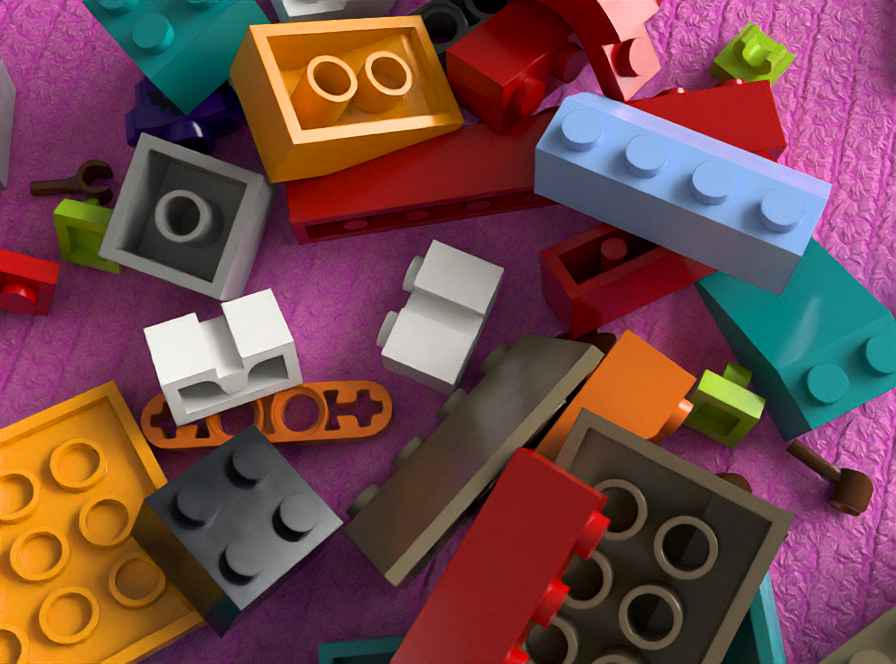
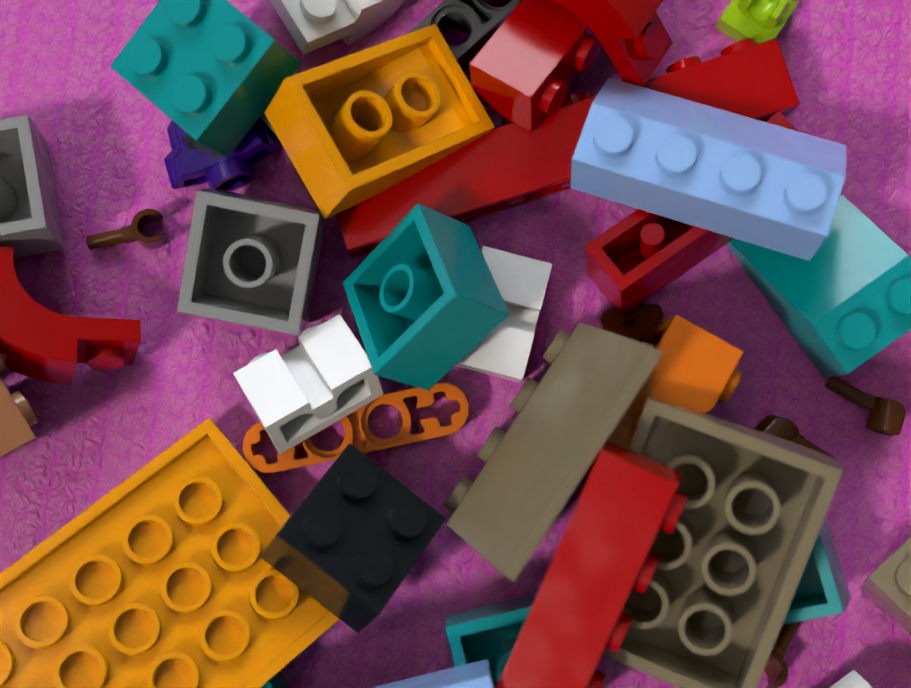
camera: 10 degrees left, 10 degrees up
(81, 232) = (154, 281): lime tile -> none
(359, 281) = (424, 298): none -> teal brick
(724, 405) = (766, 356): lime tile -> none

